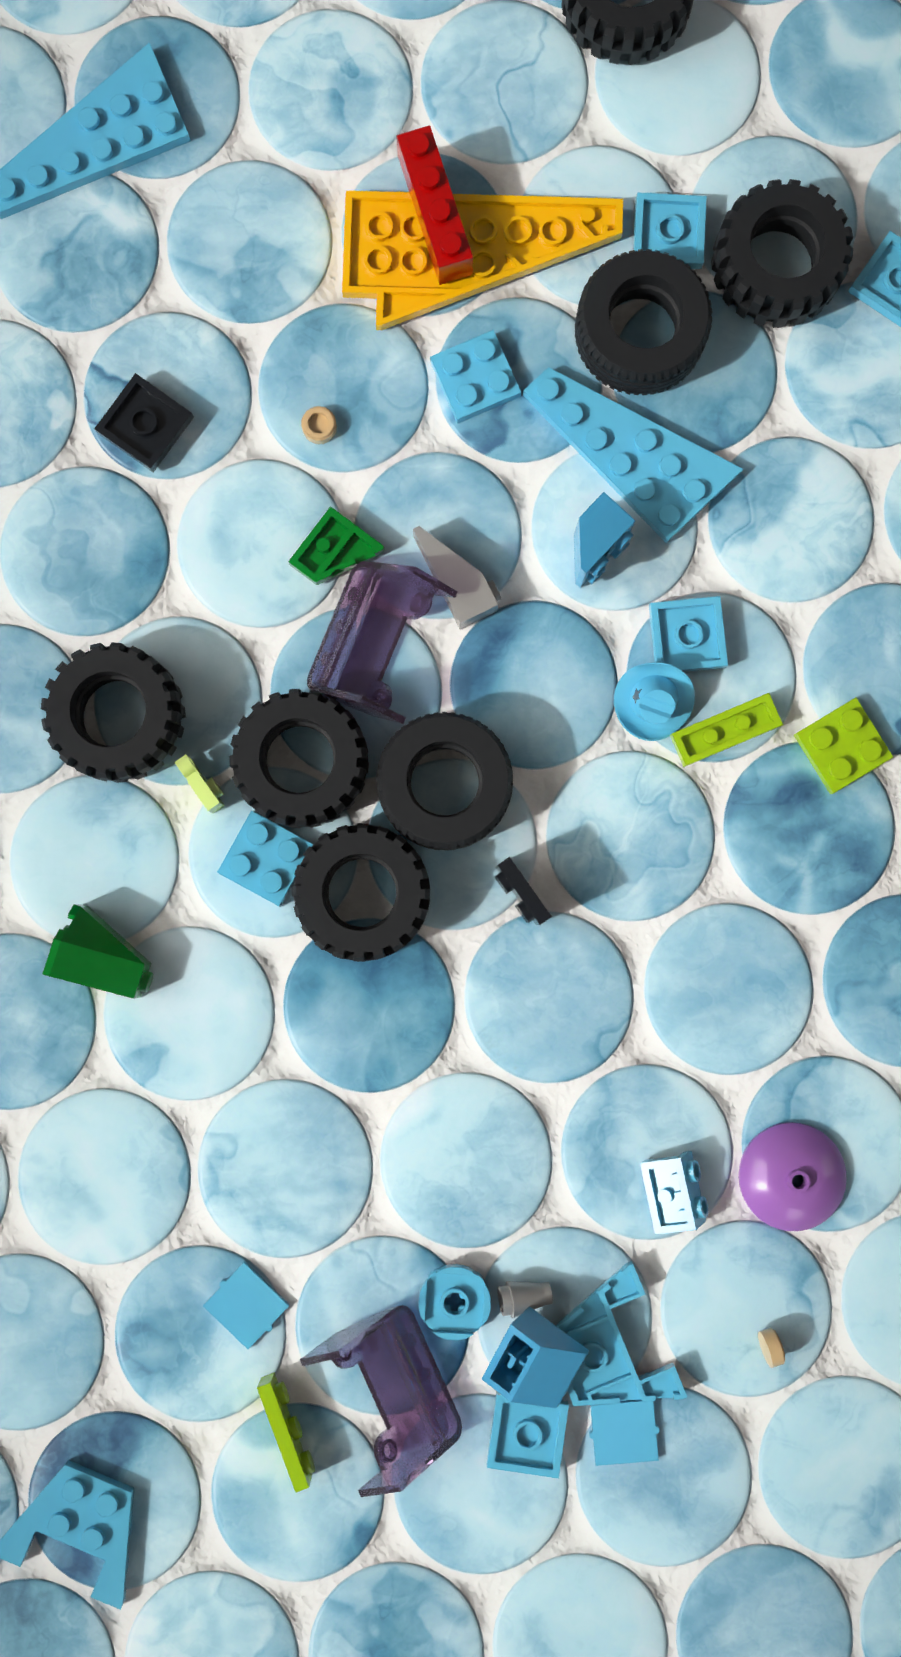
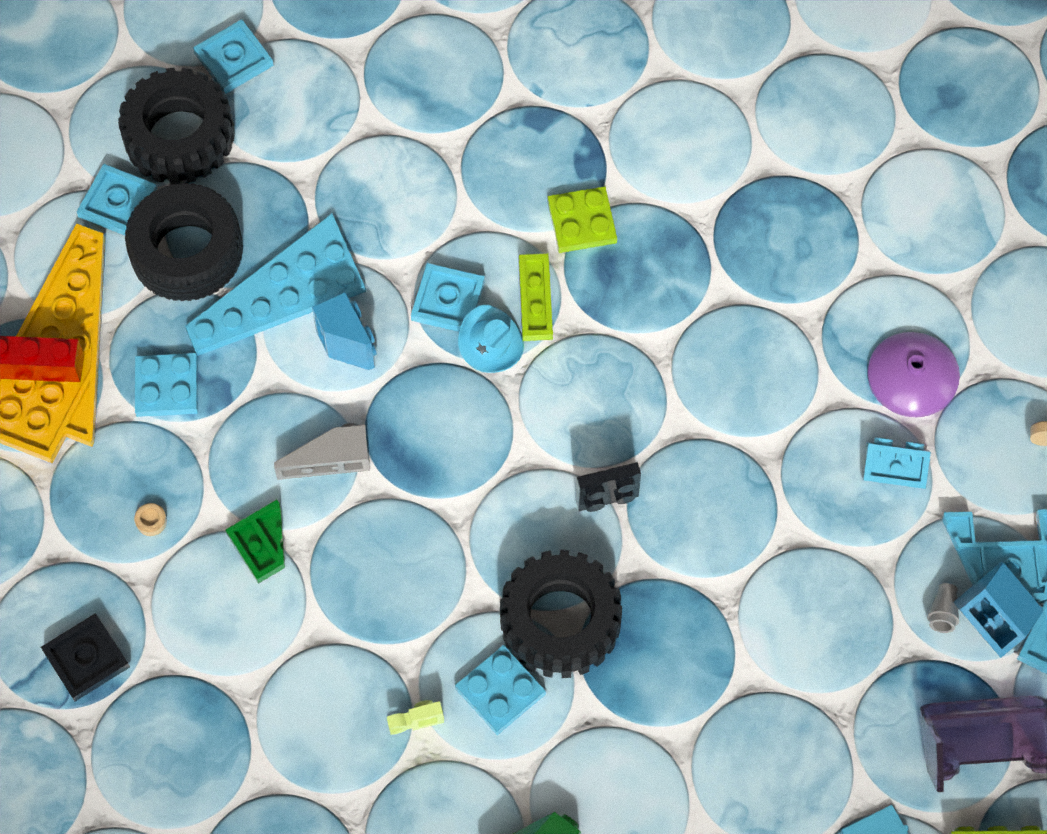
camera: 70 degrees left, 20 degrees down
(74, 688) = (318, 723): black tyre -> none
(272, 719) = (419, 586): black tyre -> none
(366, 632) = (339, 540): clear purple windscreen -> none
(441, 1285) = (947, 657): medium azure plate -> none
(444, 732) = (486, 478): black tyre -> none

